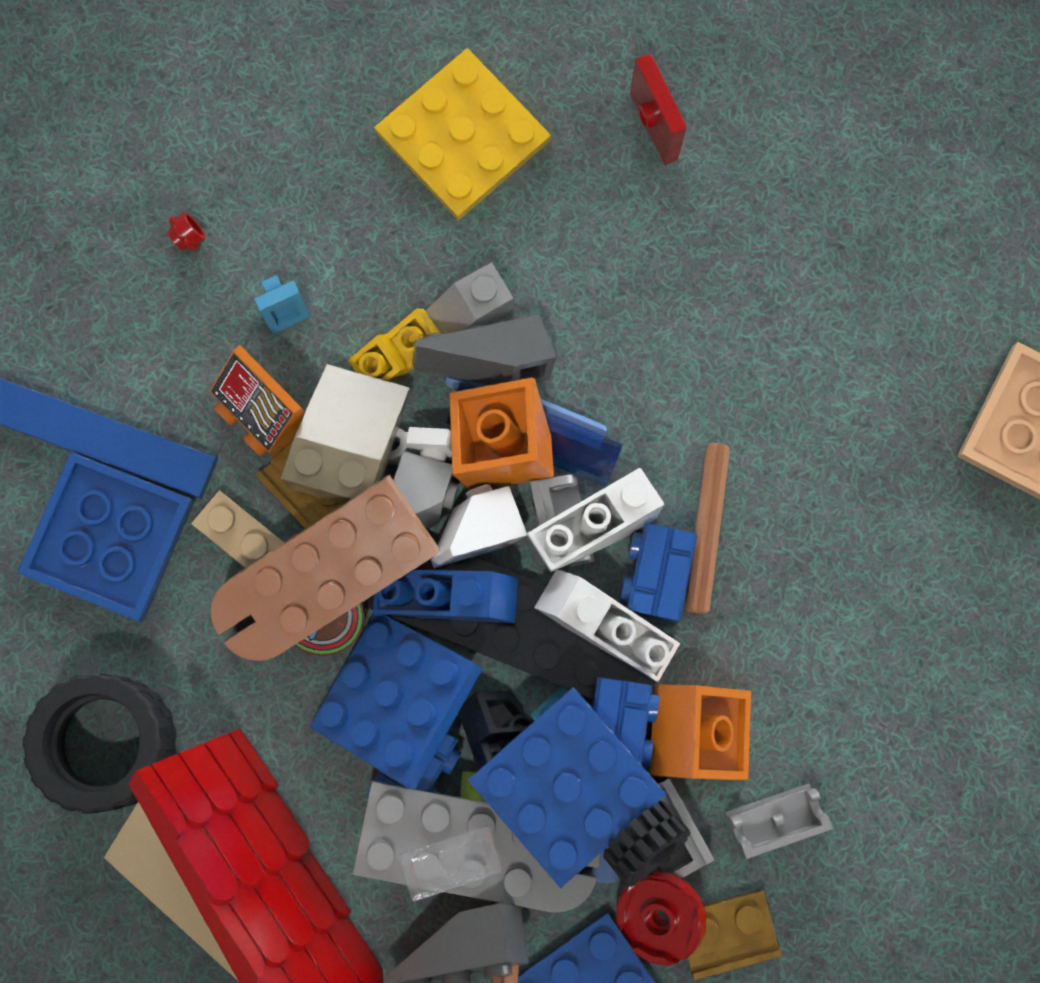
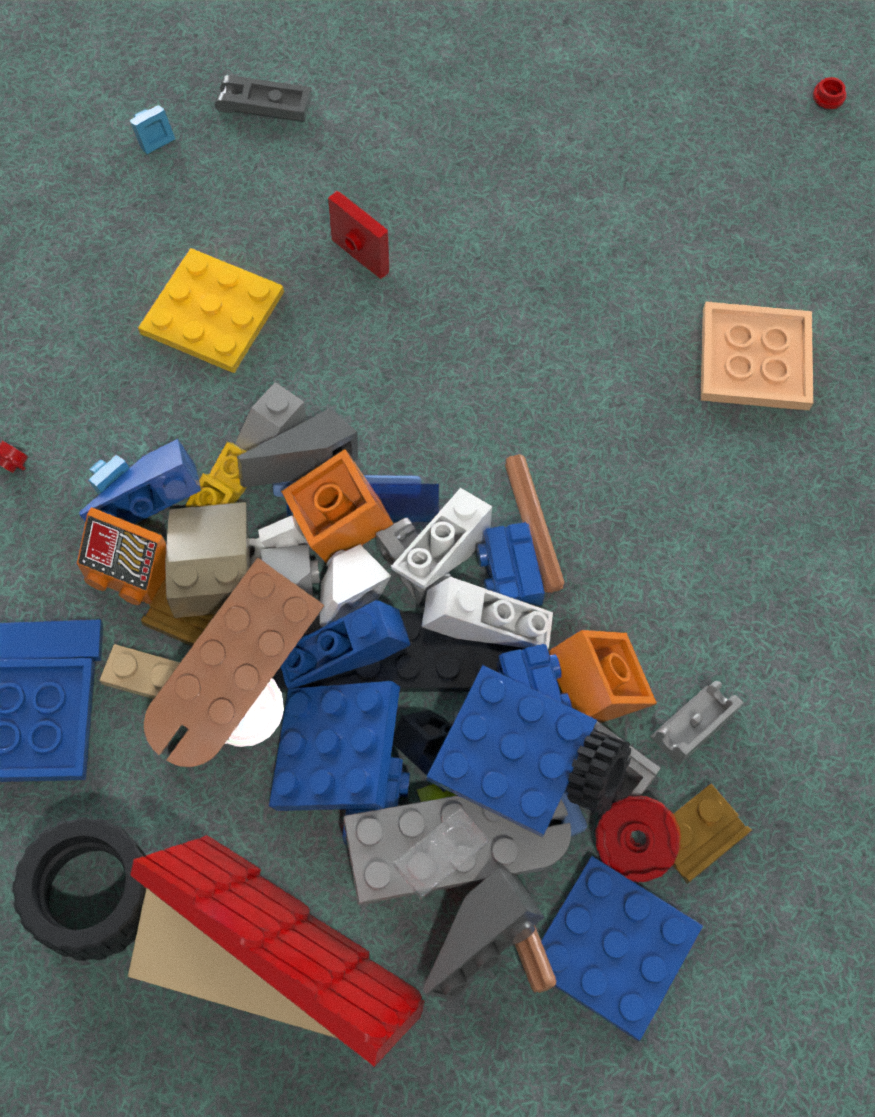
camera: 25 degrees left, 15 degrees down
(313, 329) = (149, 485): none -> blue slope

